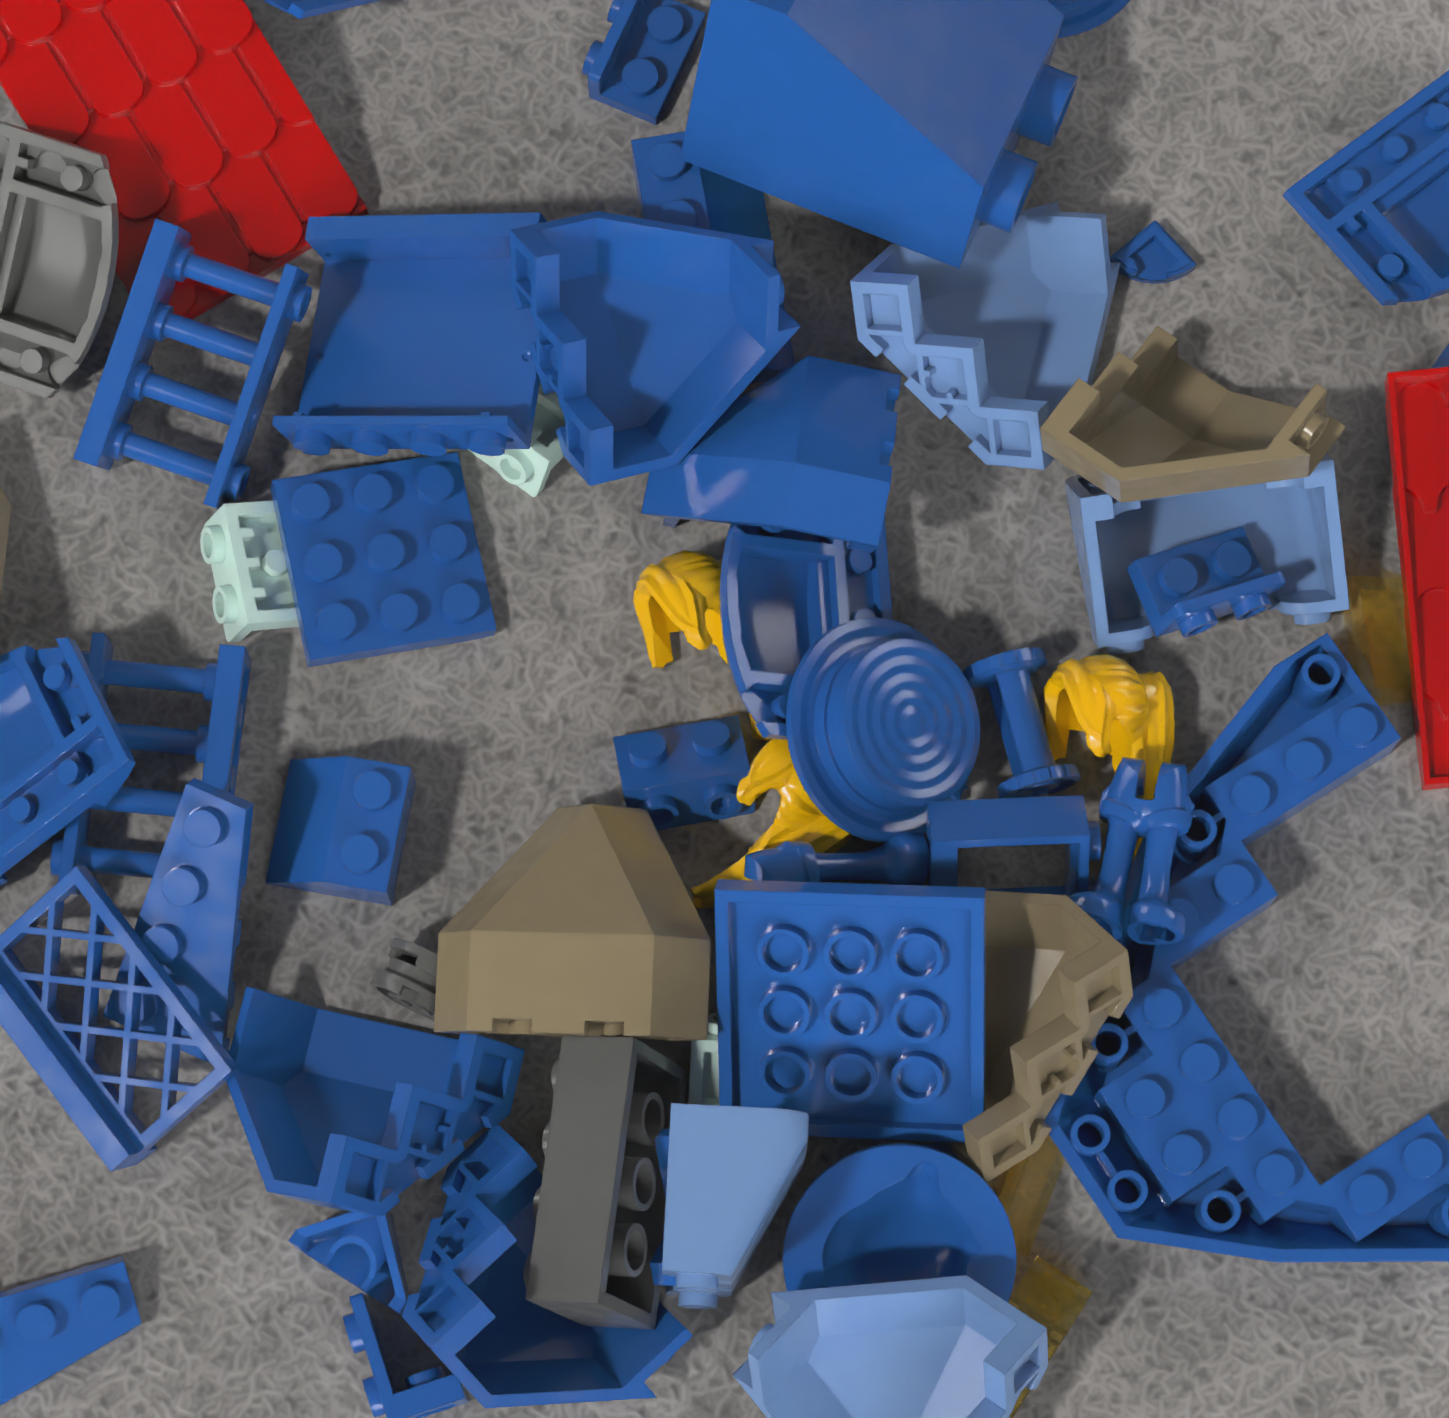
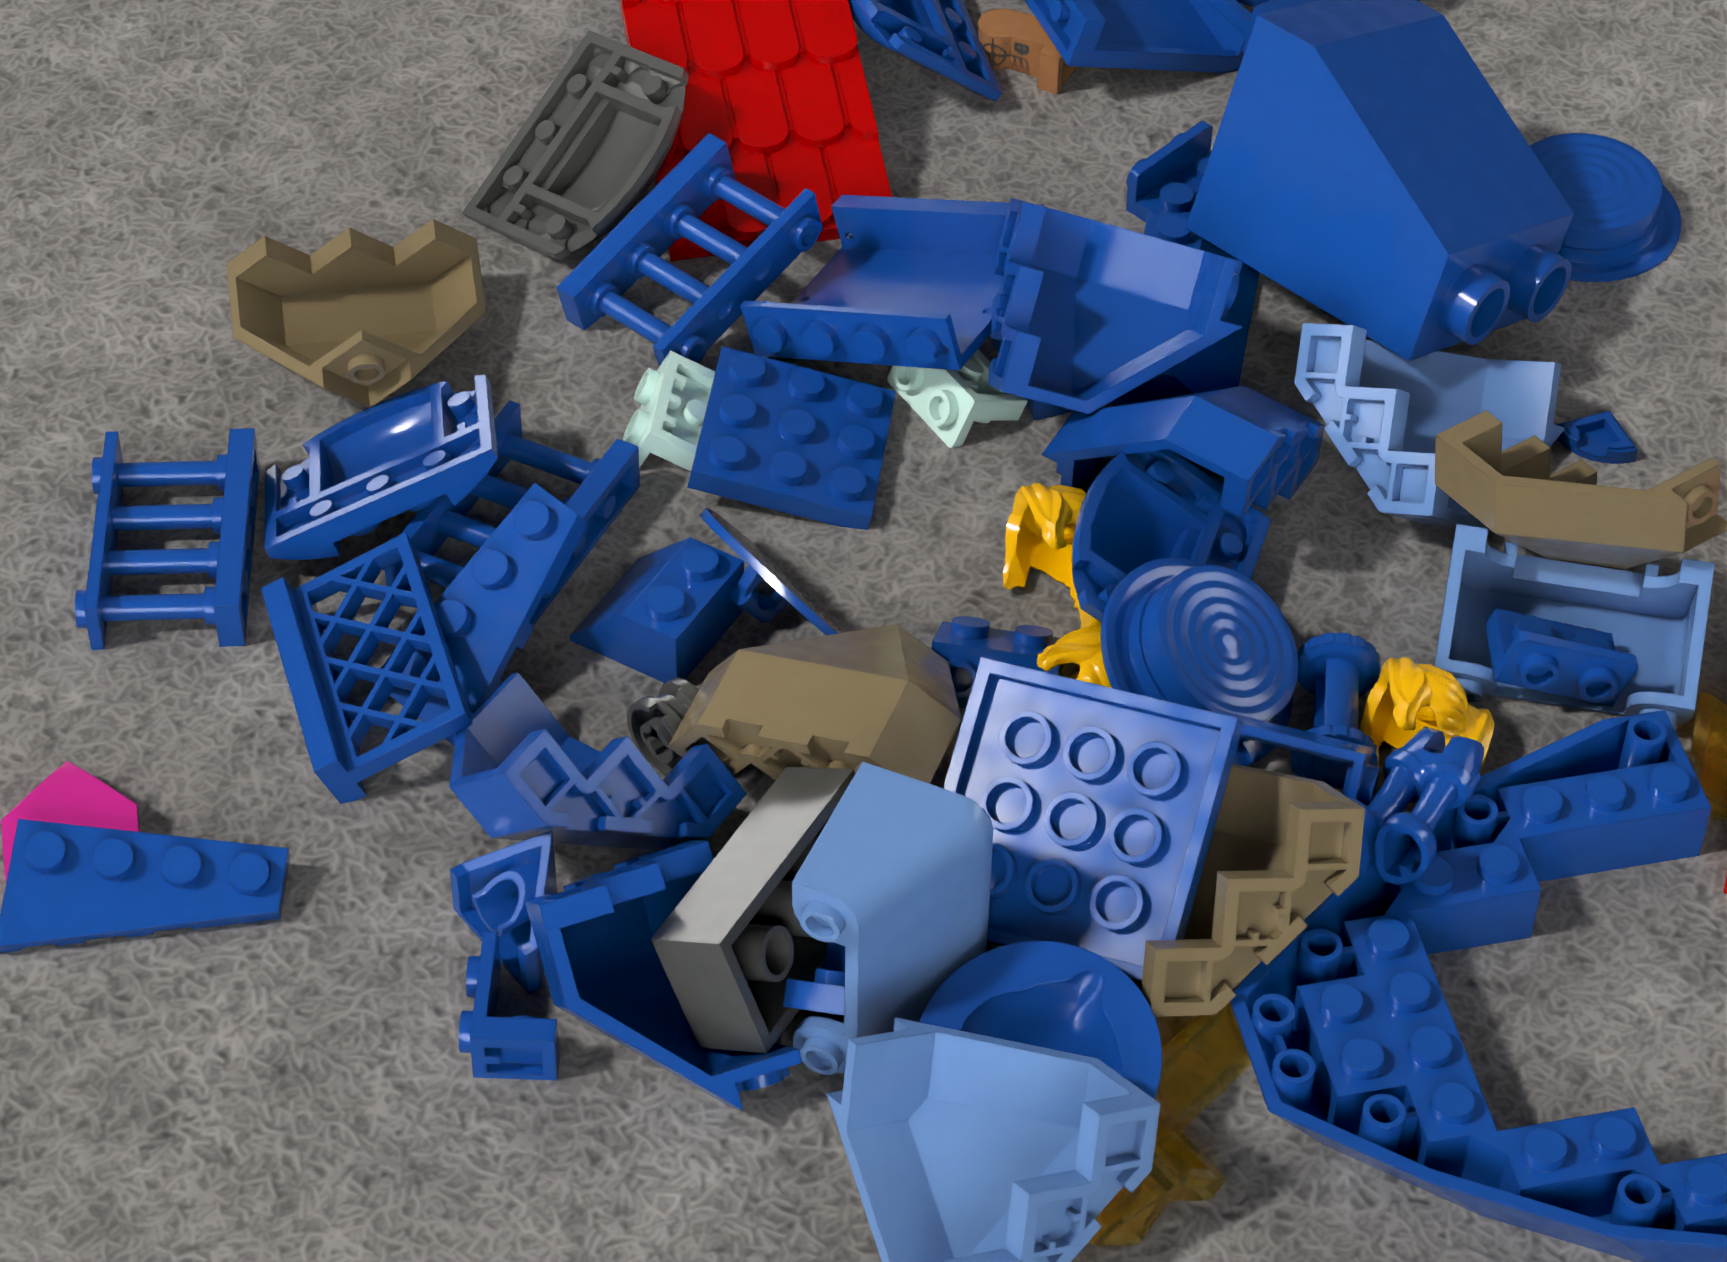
camera: 20 degrees right, 30 degrees down
(440, 764) = (763, 567): none -> blue shield

